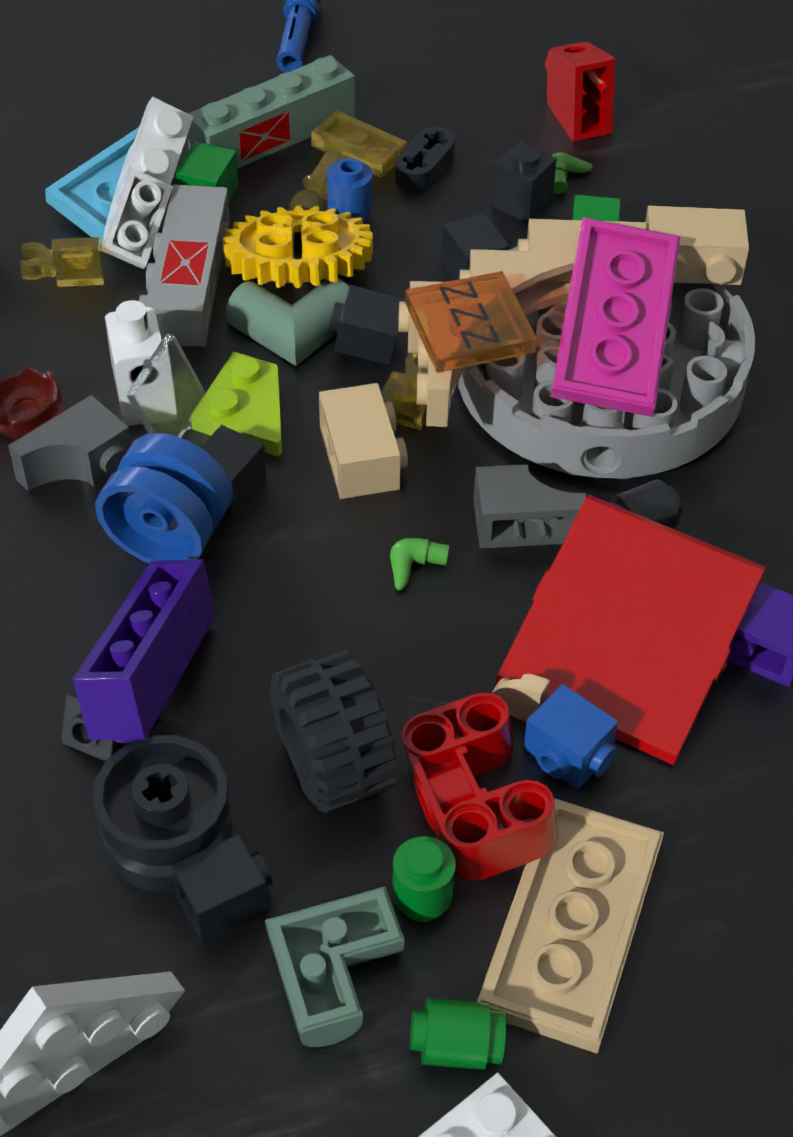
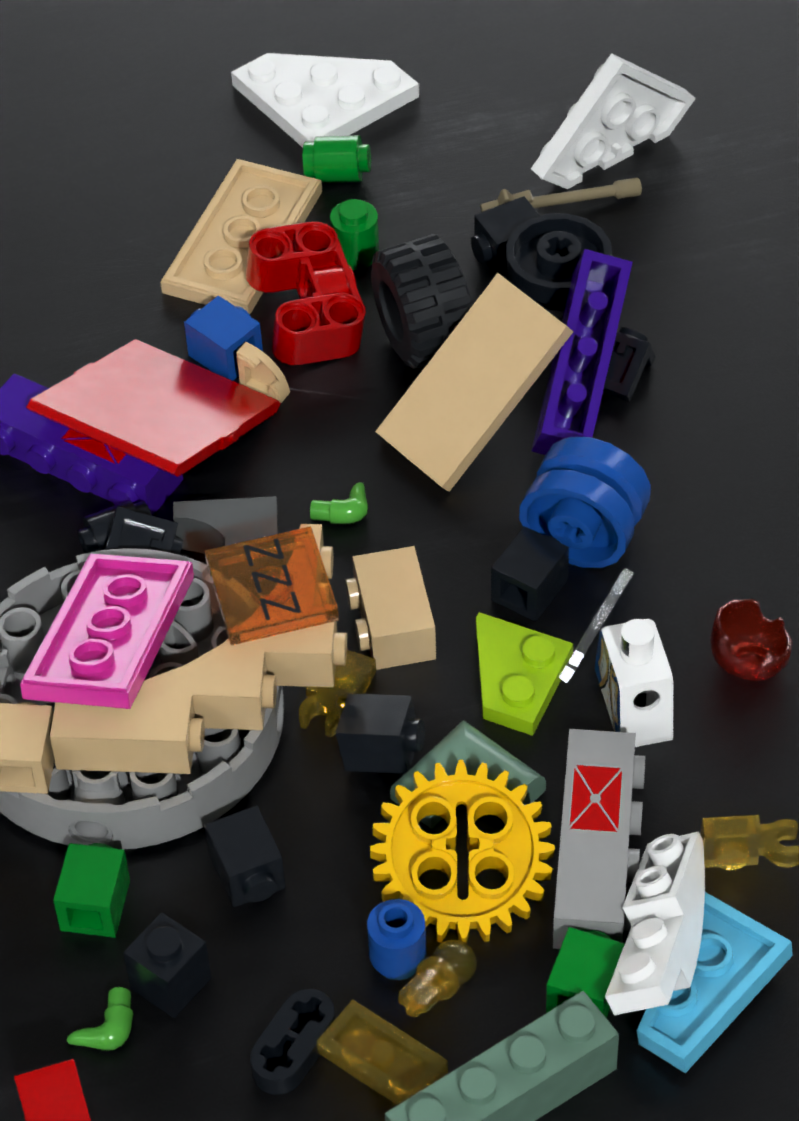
camera: 175 degrees left, 0 degrees up
(74, 445) = (687, 598): dark grey arch -> none
(205, 941) = (619, 189): none -> dark tan piece
(268, 622) = (474, 382): none -> tan tile
(314, 955) = (432, 203): sand green brick -> none
(611, 469) = (142, 531): none -> black bracket

